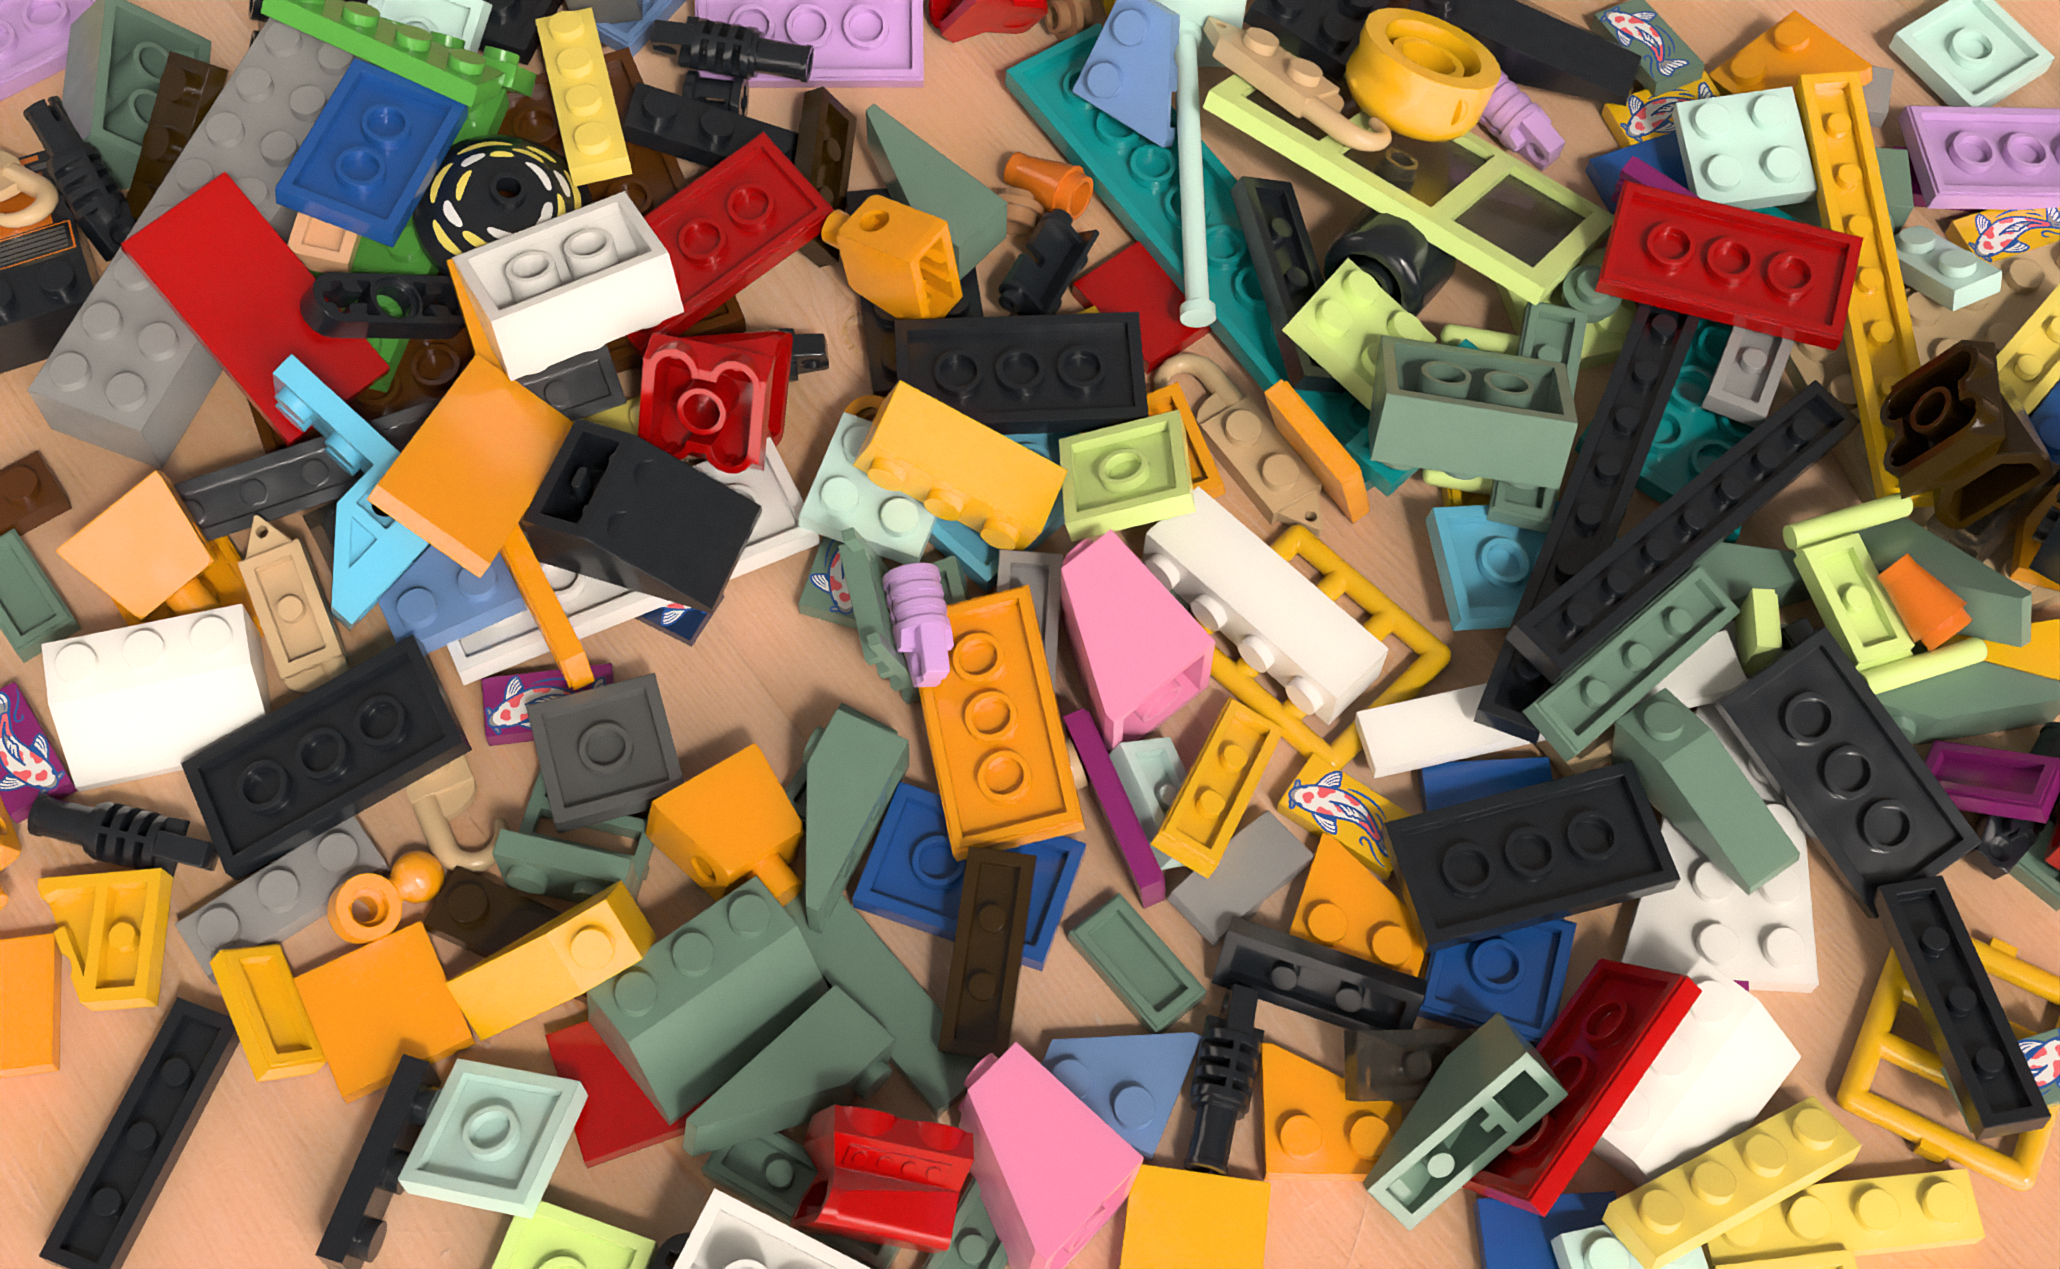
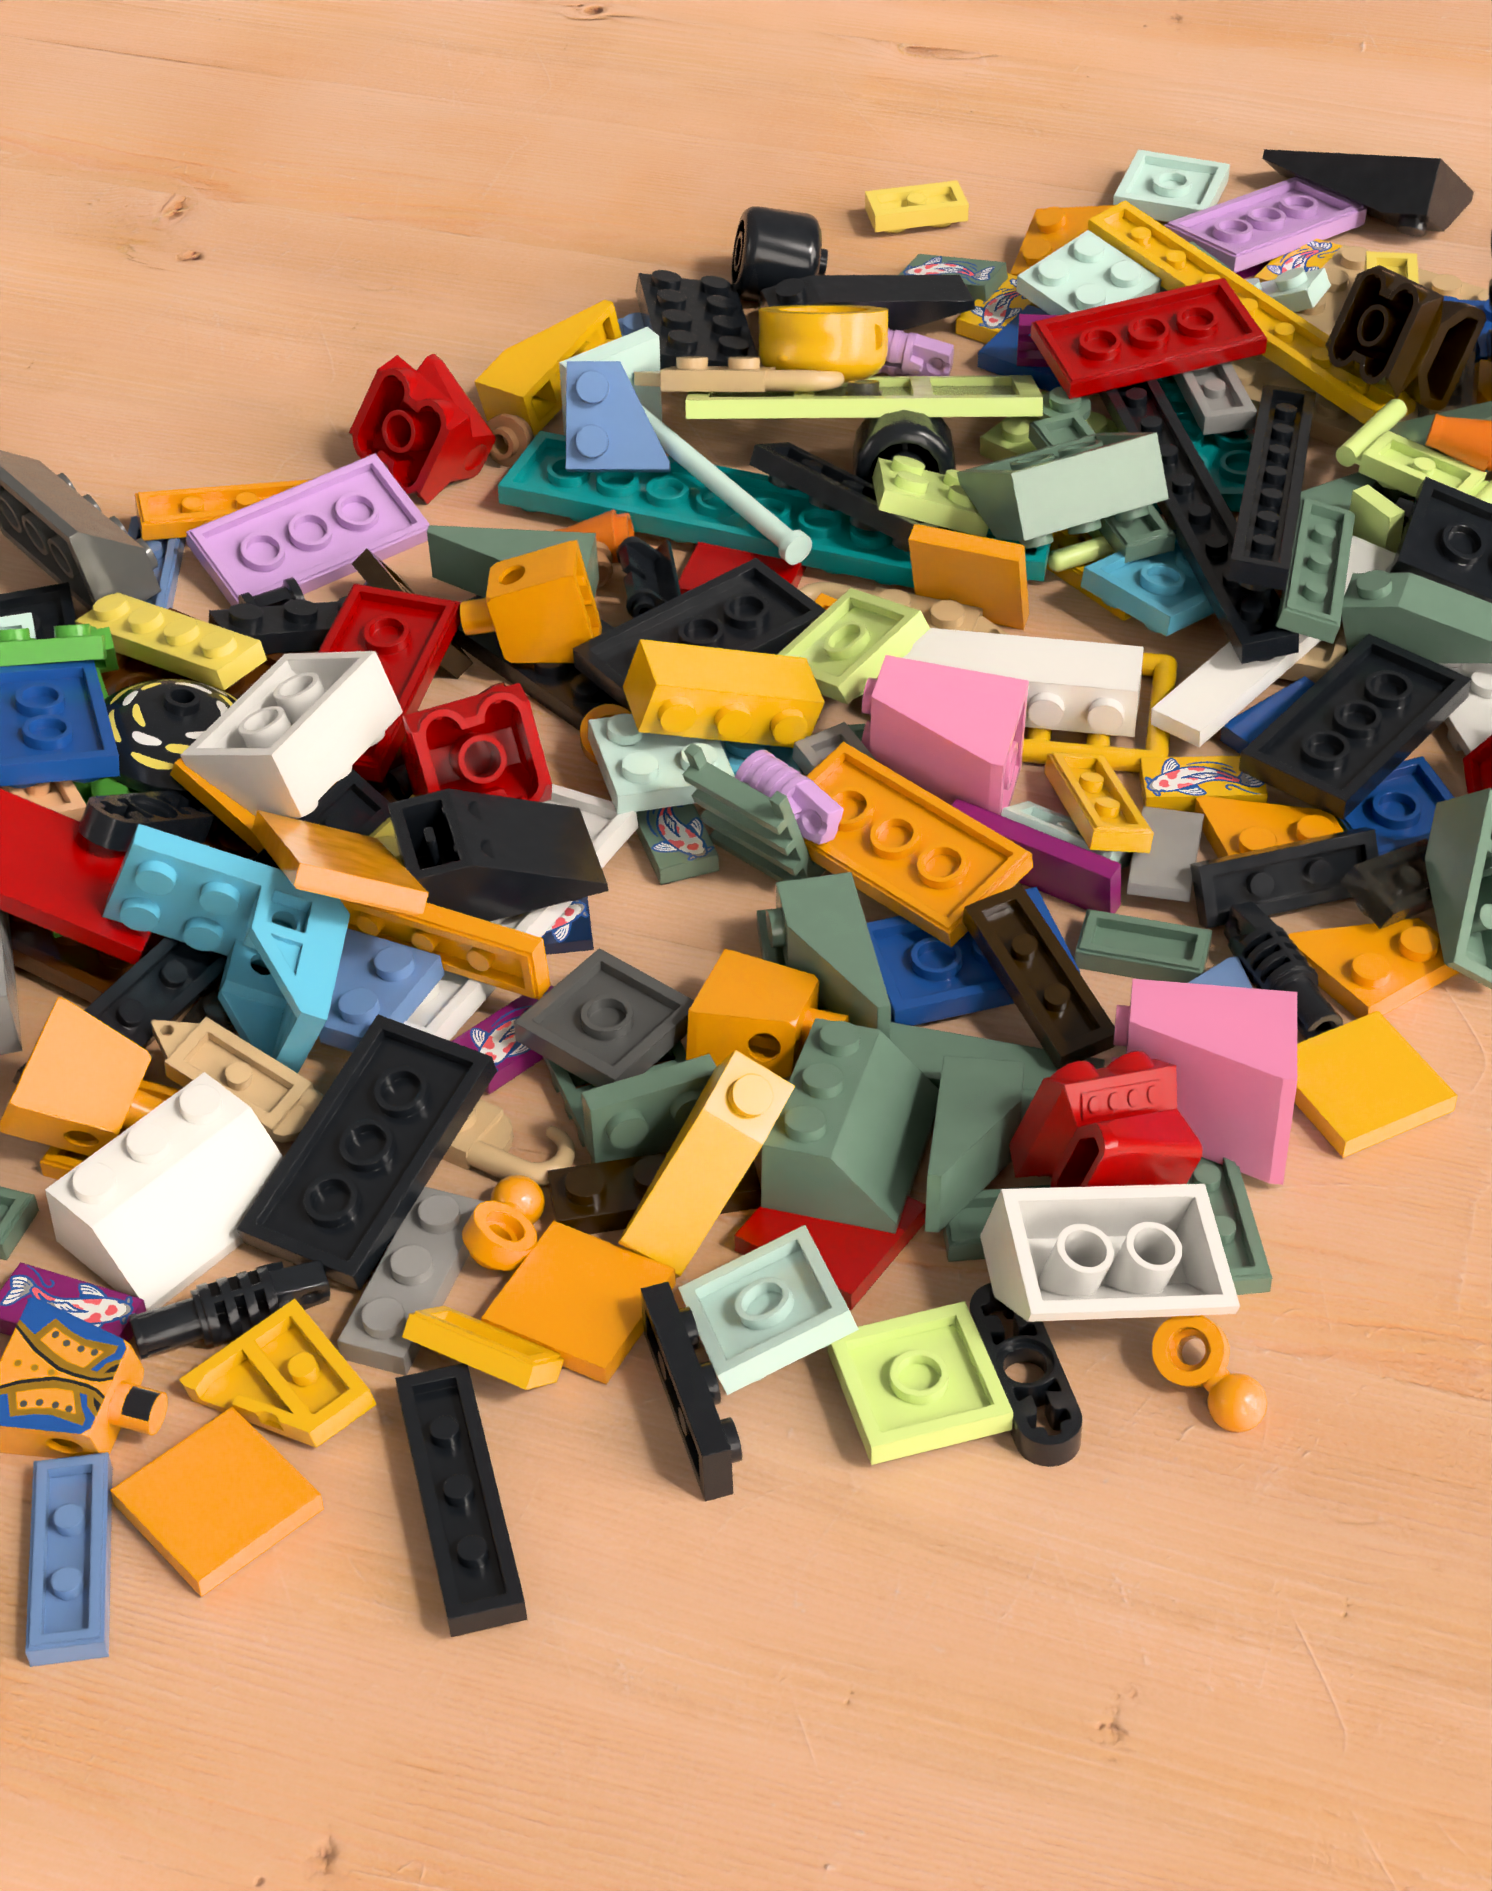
camera: 30 degrees left, 20 degrees down
(730, 49) = (262, 564): black hinge -> none

